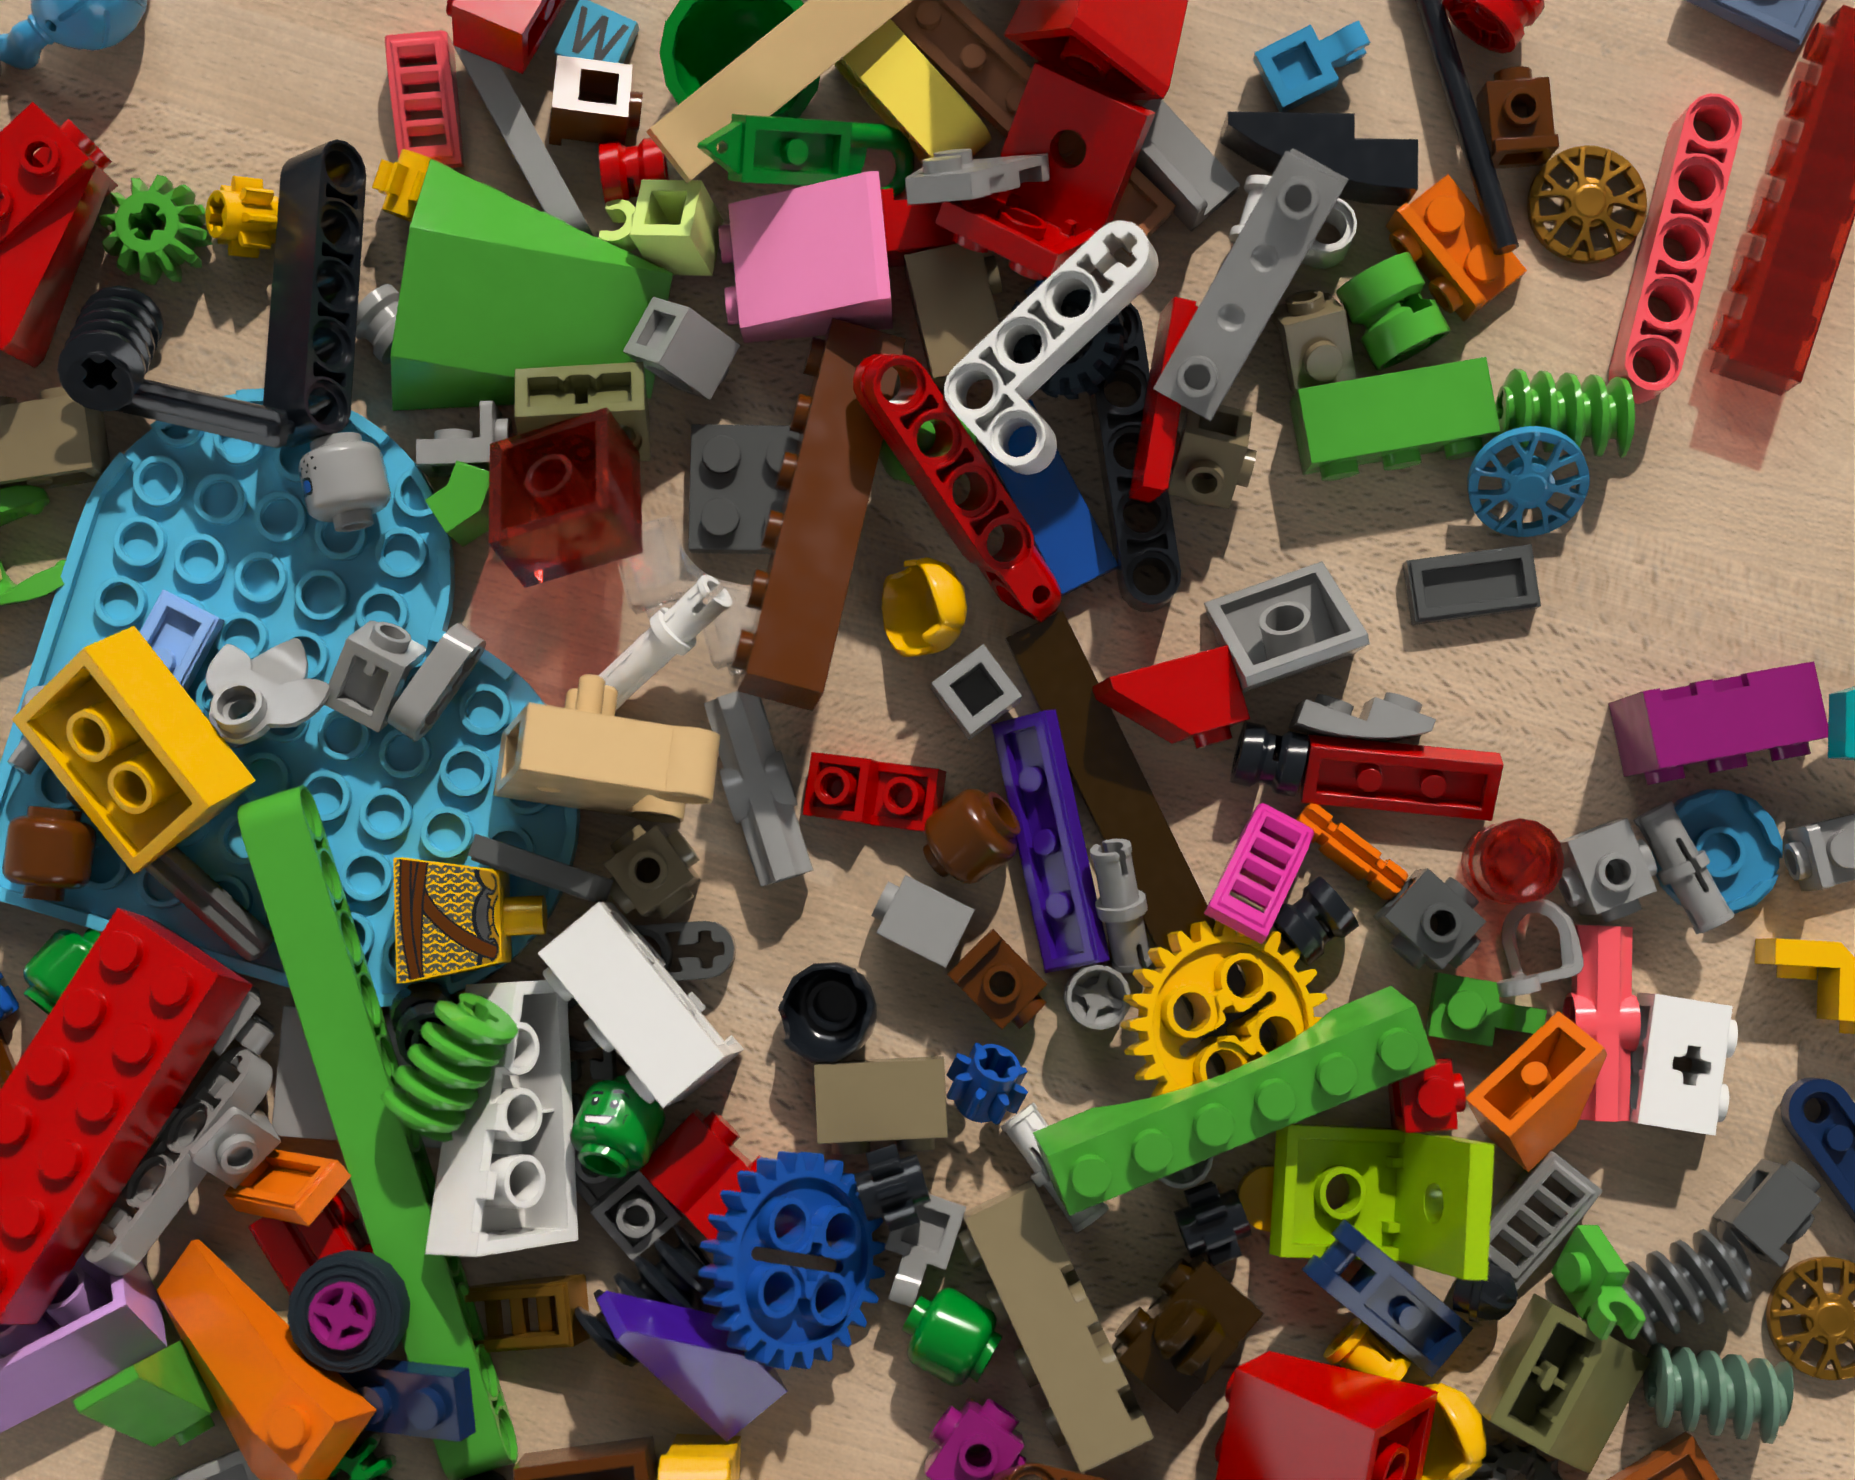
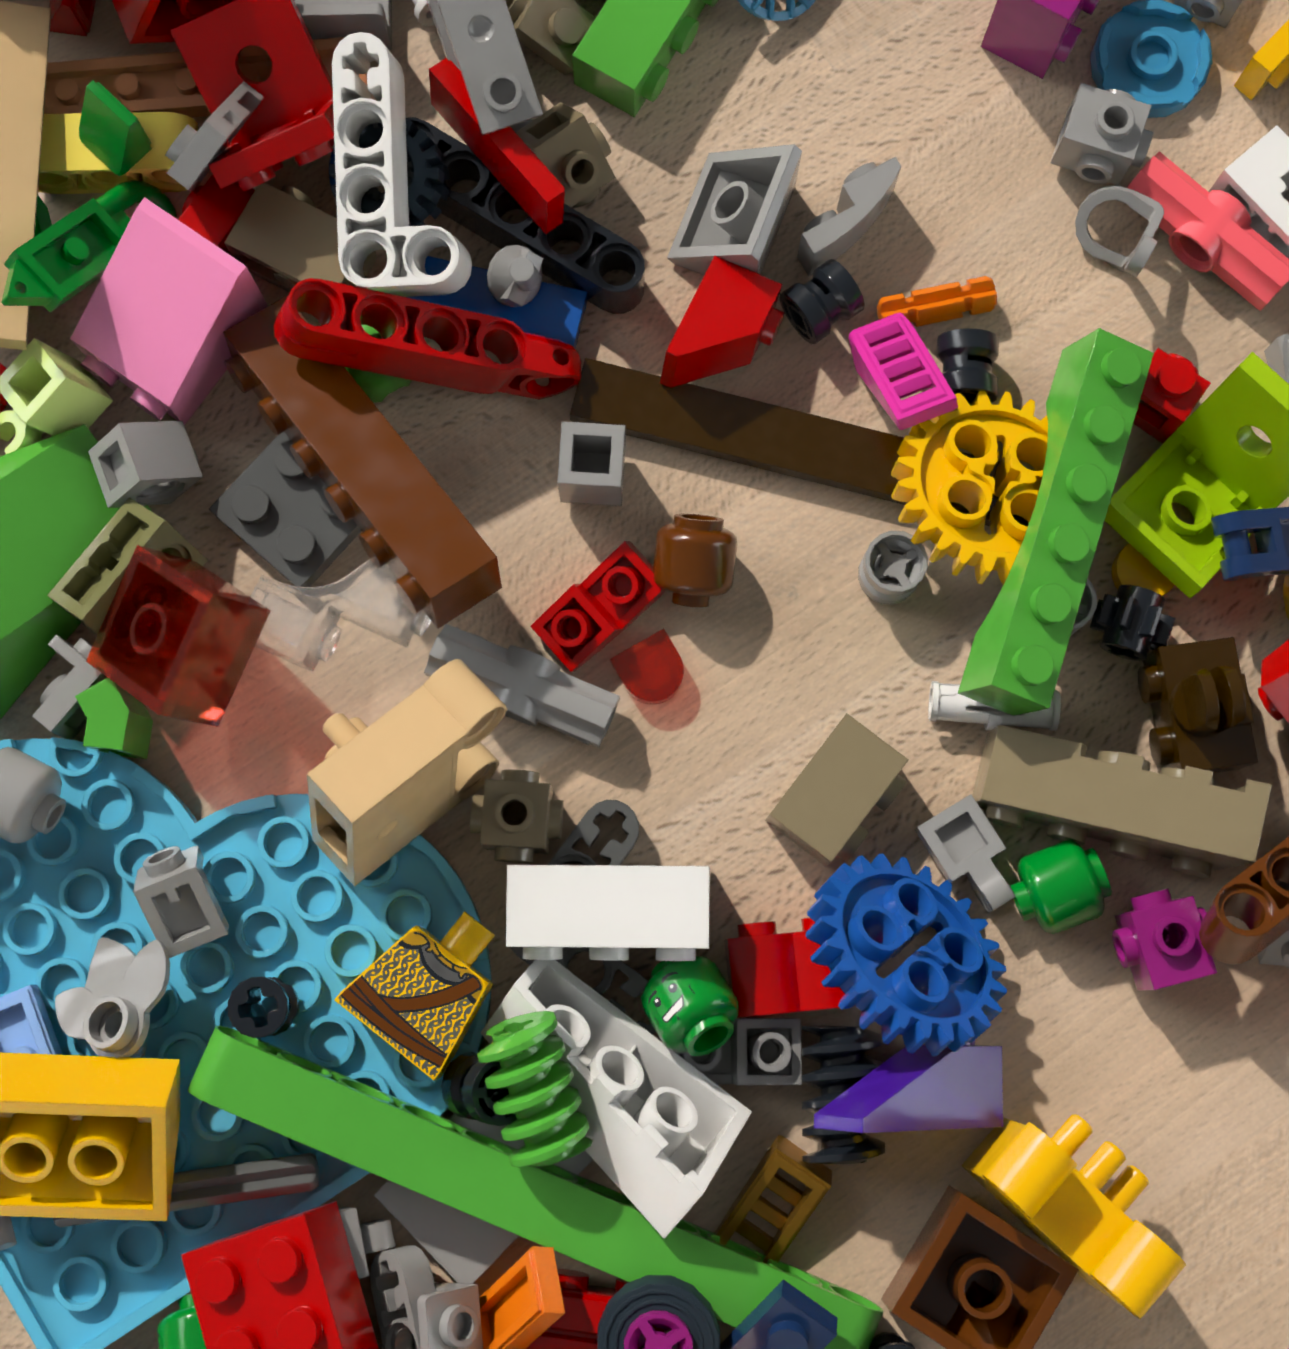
camera: 50 degrees left, 5 degrees down
(49, 852) = (89, 1277): reddish brown head -> none
(328, 813) = (249, 993): none -> black bush
(436, 682) = (229, 856): light grey beam -> none
(540, 869) = (442, 894): dark grey tile -> none
(670, 633) = (350, 648): white pin -> none
(827, 1012) = (736, 774): black hair -> none
(857, 874) = (650, 669): none -> clear red tile
(892, 1187) = (913, 832): black gear -> none
(917, 88) = (111, 130): none -> green slope
(922, 919) = (727, 646): light grey brick -> none
(923, 607) = (494, 452): yellow hair -> none
(978, 967) = (805, 647): reddish brown brick -> none
(987, 1083) = (890, 700): blue gear -> none
(1050, 841) = (750, 506): dark purple tile -> none
(1077, 500) = (514, 275): none -> light grey plate
(1121, 905) = (839, 491): light grey pin -> none
(1401, 777) = (916, 220): red plate -> none
(1409, 921) = (1038, 283): dark grey brick -> none
(1471, 584) = (815, 66): dark grey tile -> none
(1471, 1010) = (1132, 311): bright green plate -> none
(1512, 862) = (1043, 192): clear red wheel -> none
(1539, 1091) = (1226, 305): orange slope -> none
(1684, 868) = (1149, 79): light grey pin -> none

